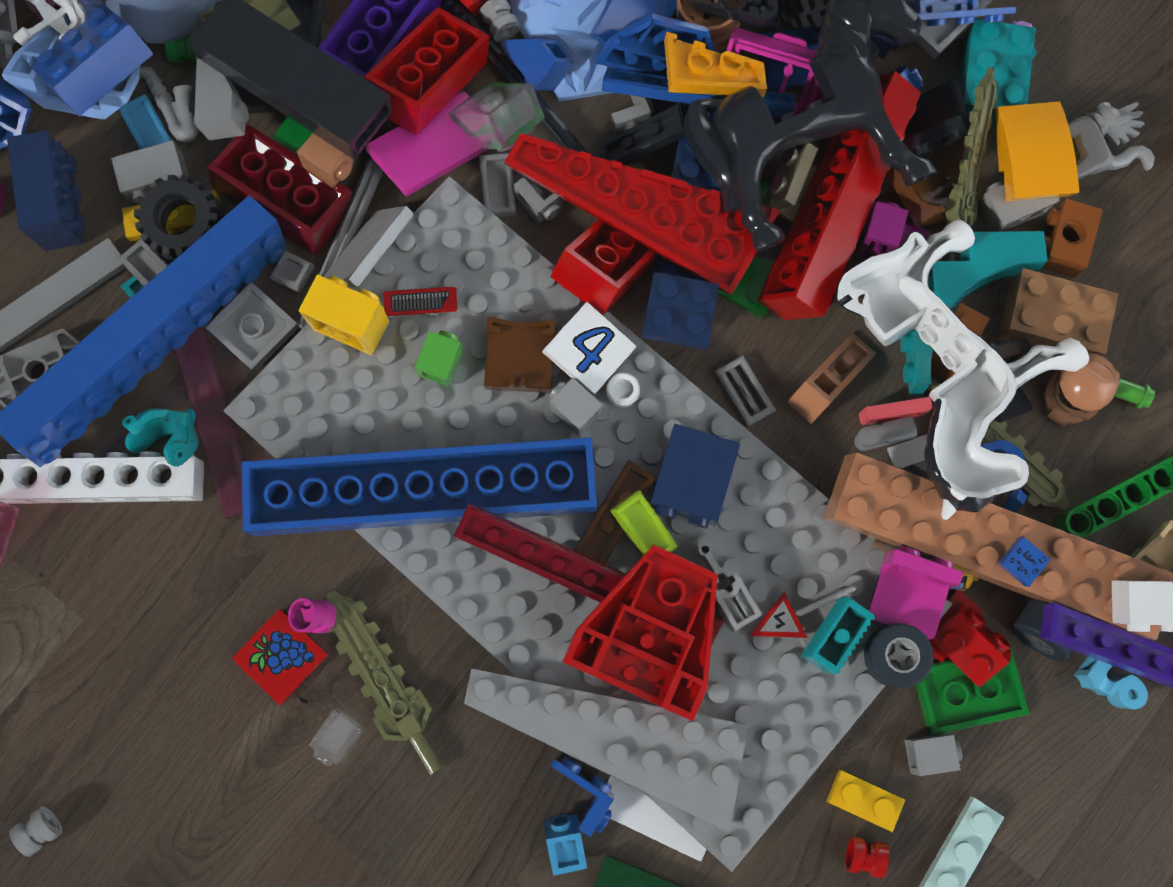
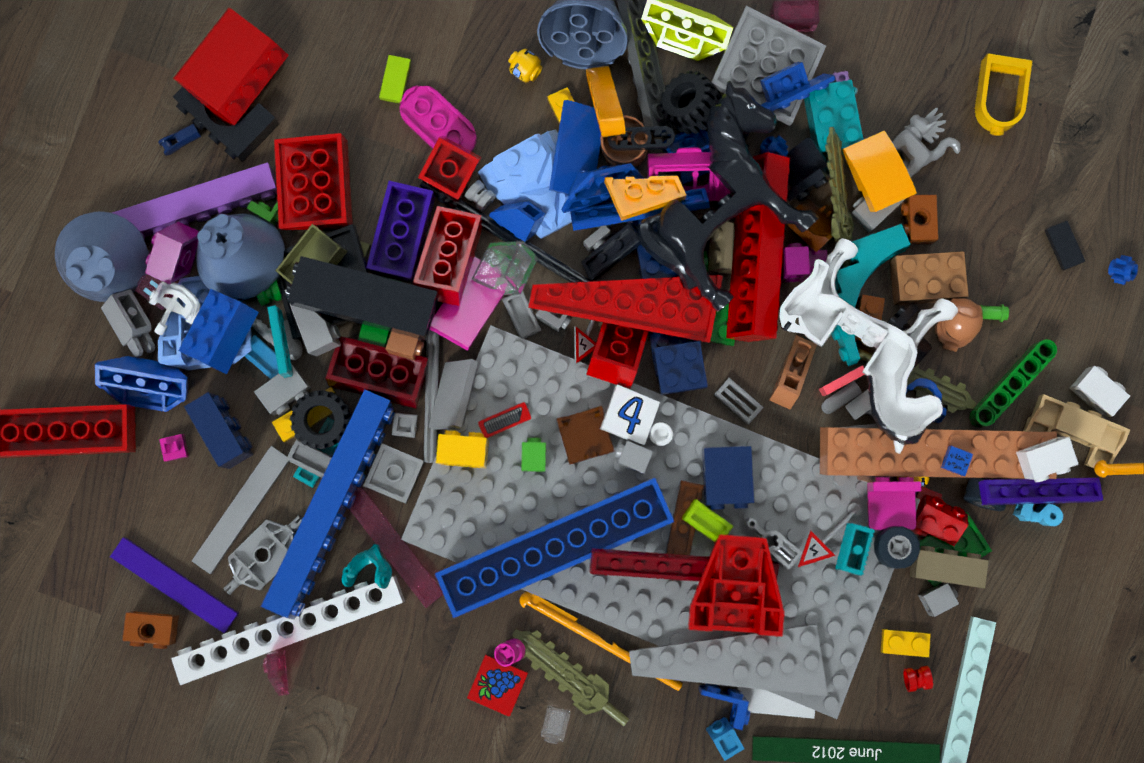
camera: 20 degrees left, 5 degrees up
(168, 104) = (280, 341): none -> teal tile
(410, 605) = (569, 621): none -> light orange bar
(562, 237) = (582, 343): none -> piece
(963, 714) = (950, 567): none -> dark tan brick

